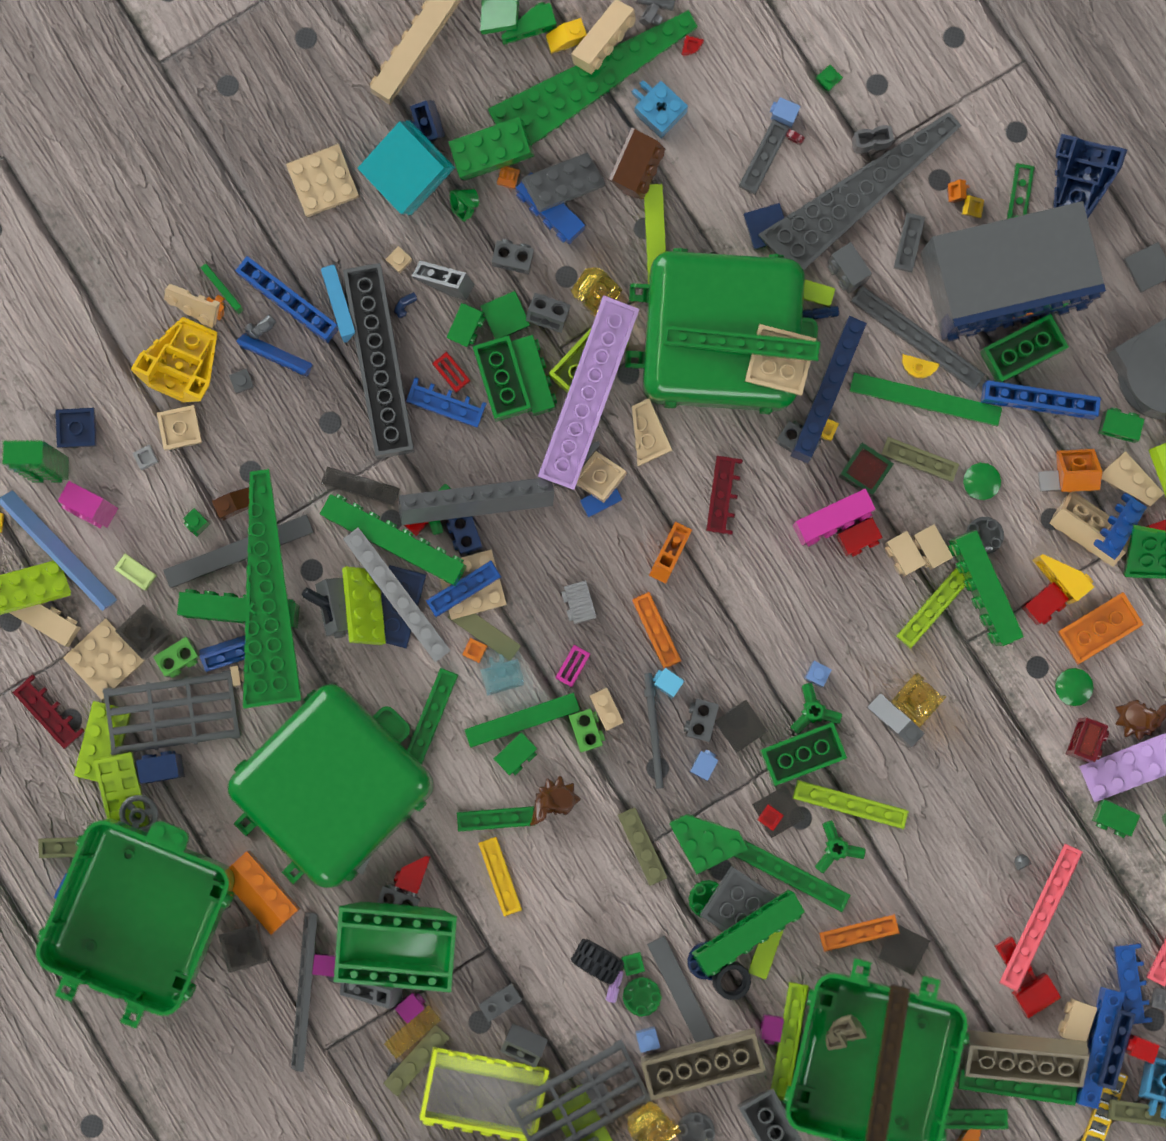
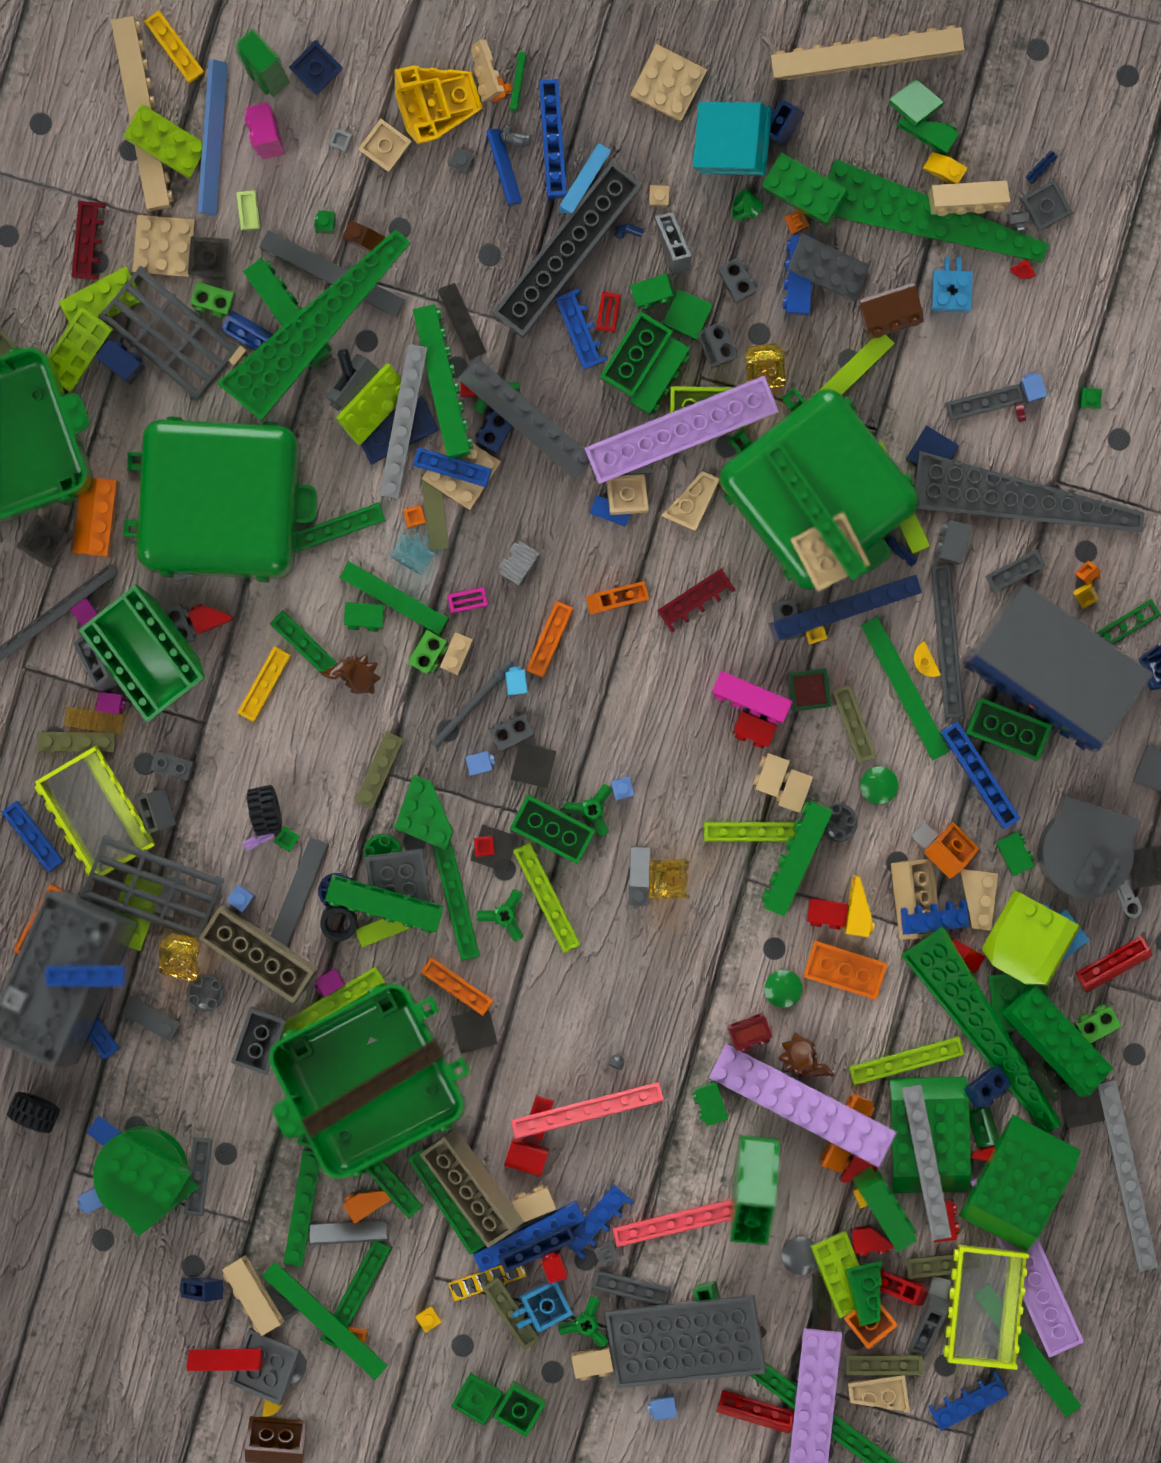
camera: 50 degrees right, 5 degrees up
(133, 818) = (66, 375): dark grey piece -> none
(642, 996) = (268, 866): green dish -> none
(844, 1030) = (372, 1035): dark tan brick -> none
(876, 139) = (1074, 476): flat silver brick -> none

